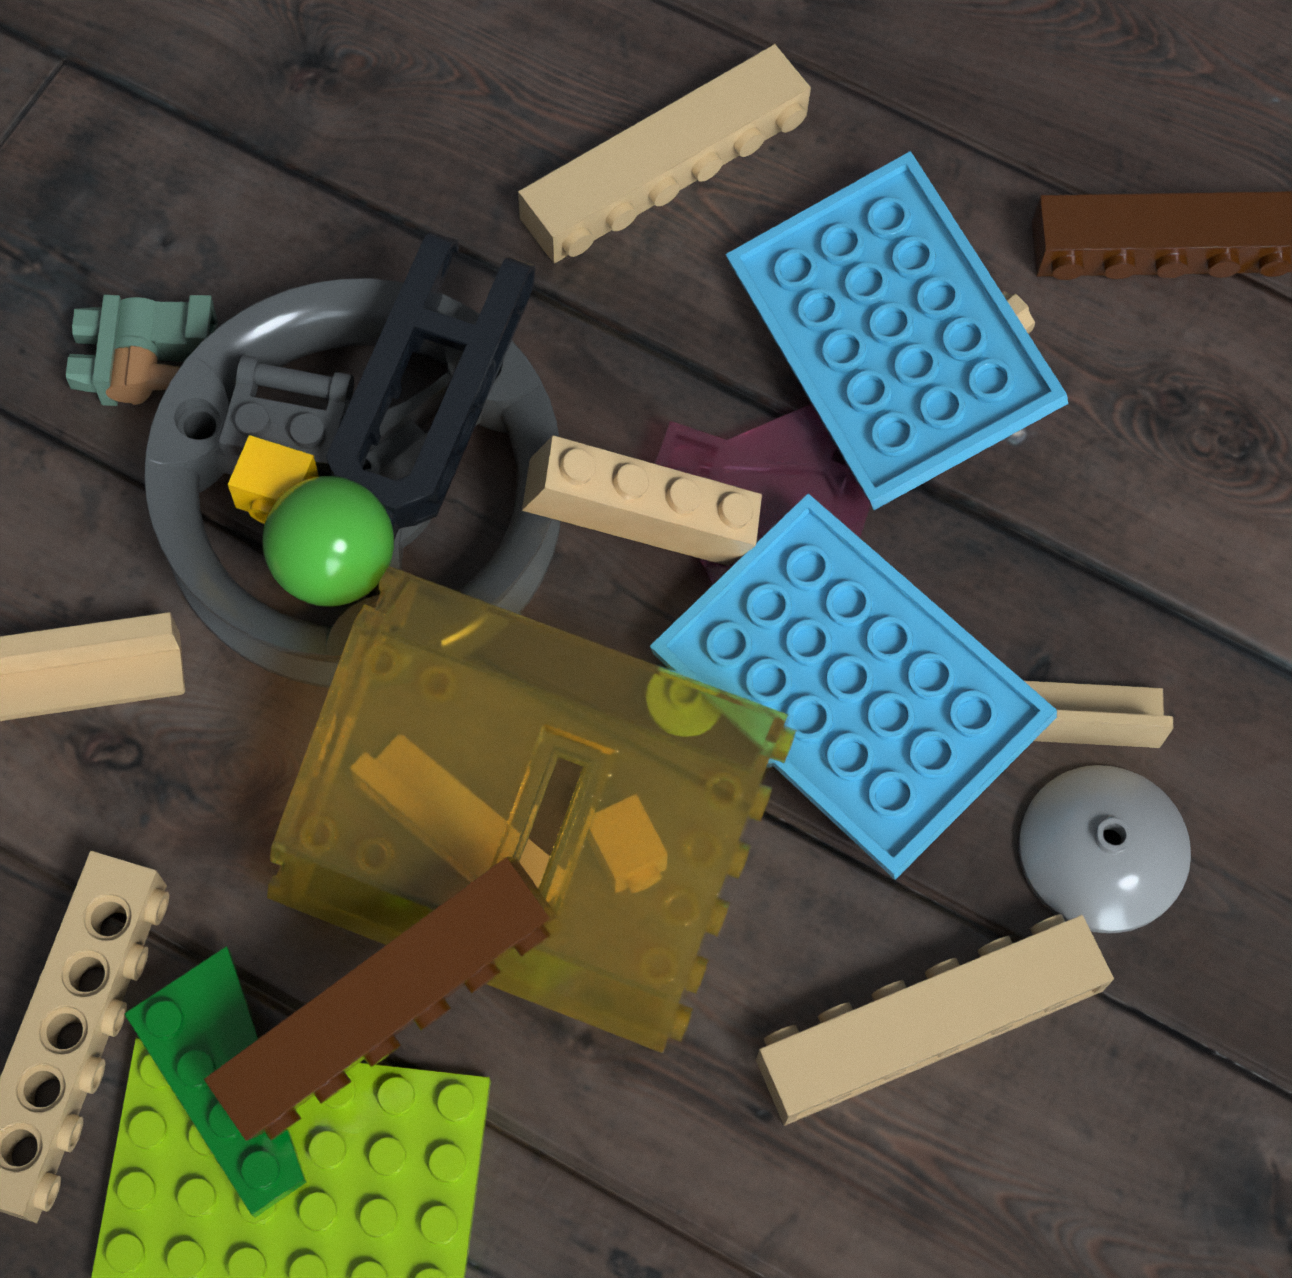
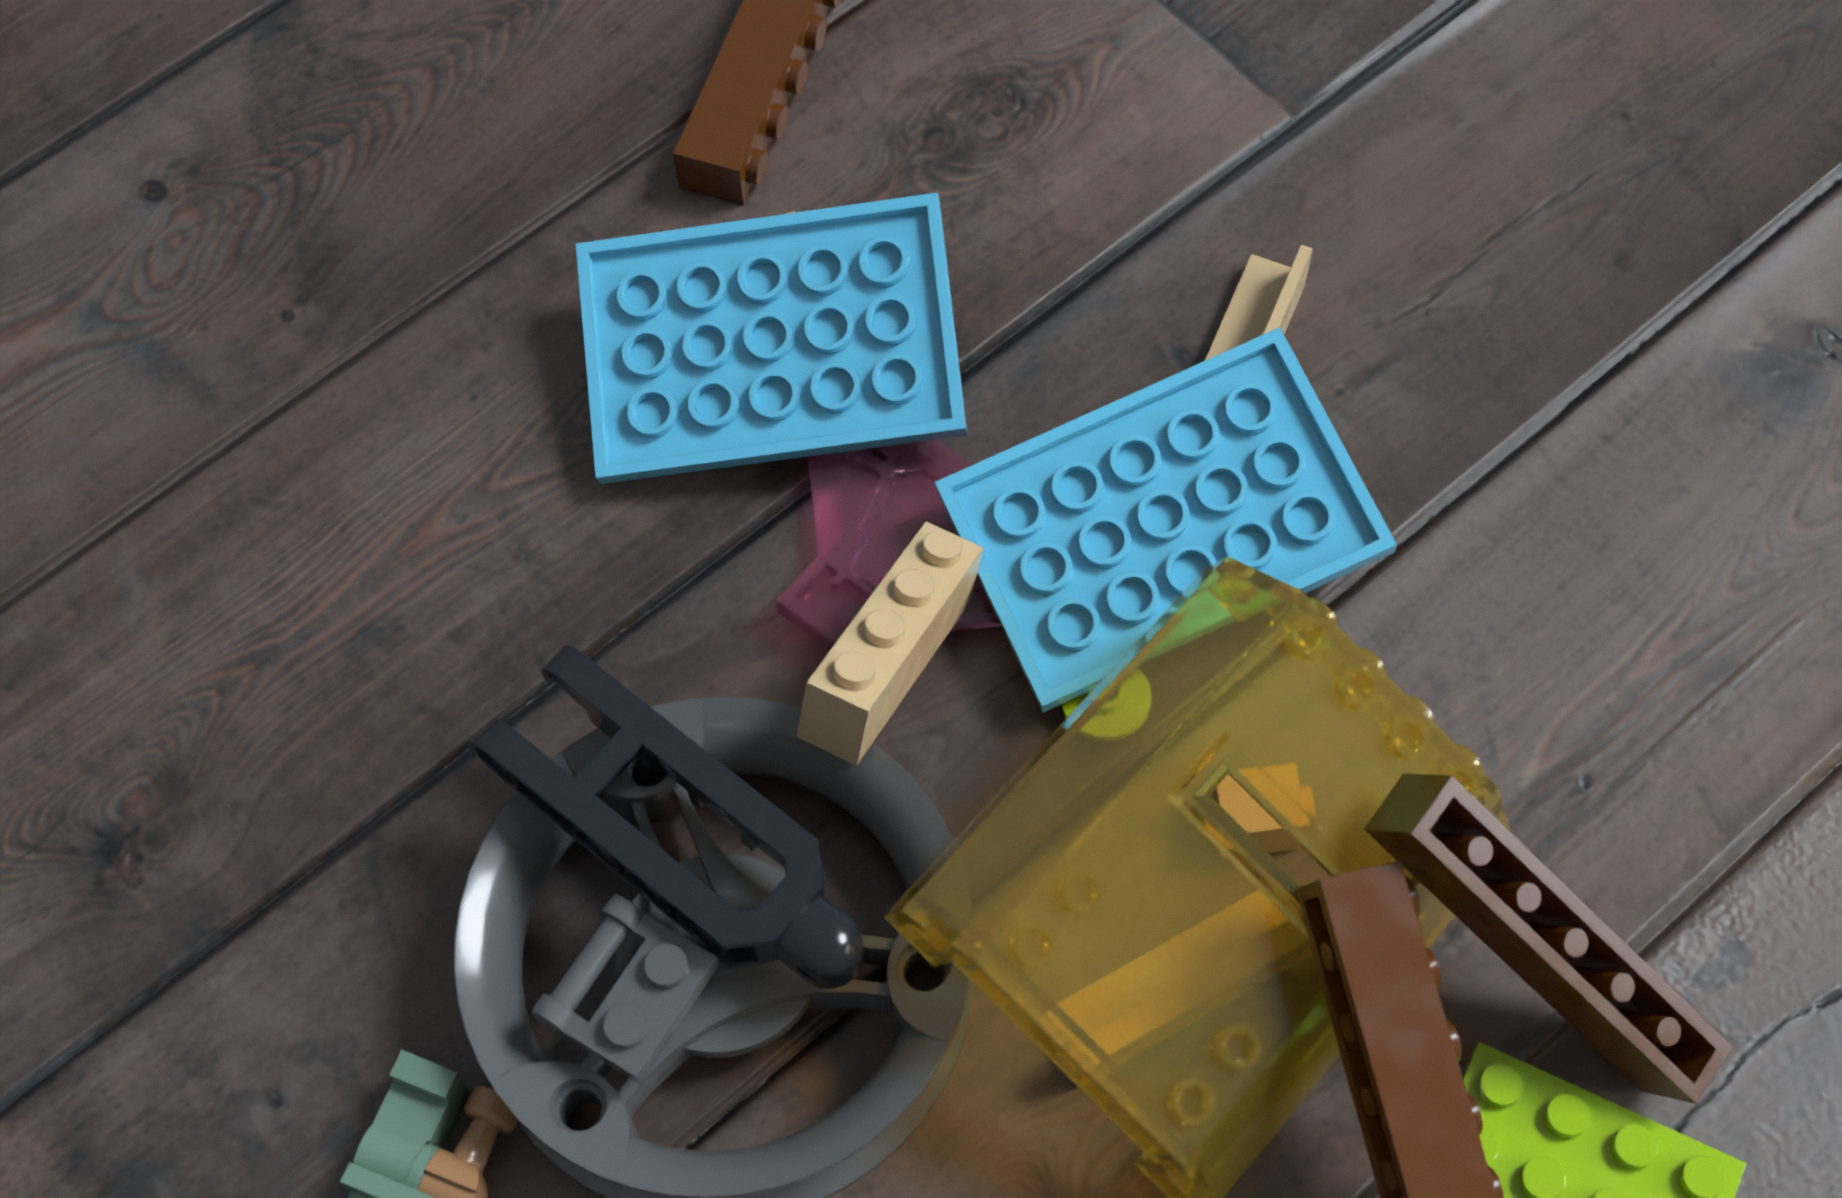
camera: 65 degrees left, 5 degrees down
(266, 473) = (721, 1023): yellow brick -> none
(328, 541) = (828, 979): bright green piece -> none
(557, 1080) = (1548, 936): none -> reddish brown brick
(664, 154) = (439, 502): tan brick -> none
(933, 1018) = (1540, 585): tan brick -> none
(1084, 875) = (1394, 395): light grey dish -> none

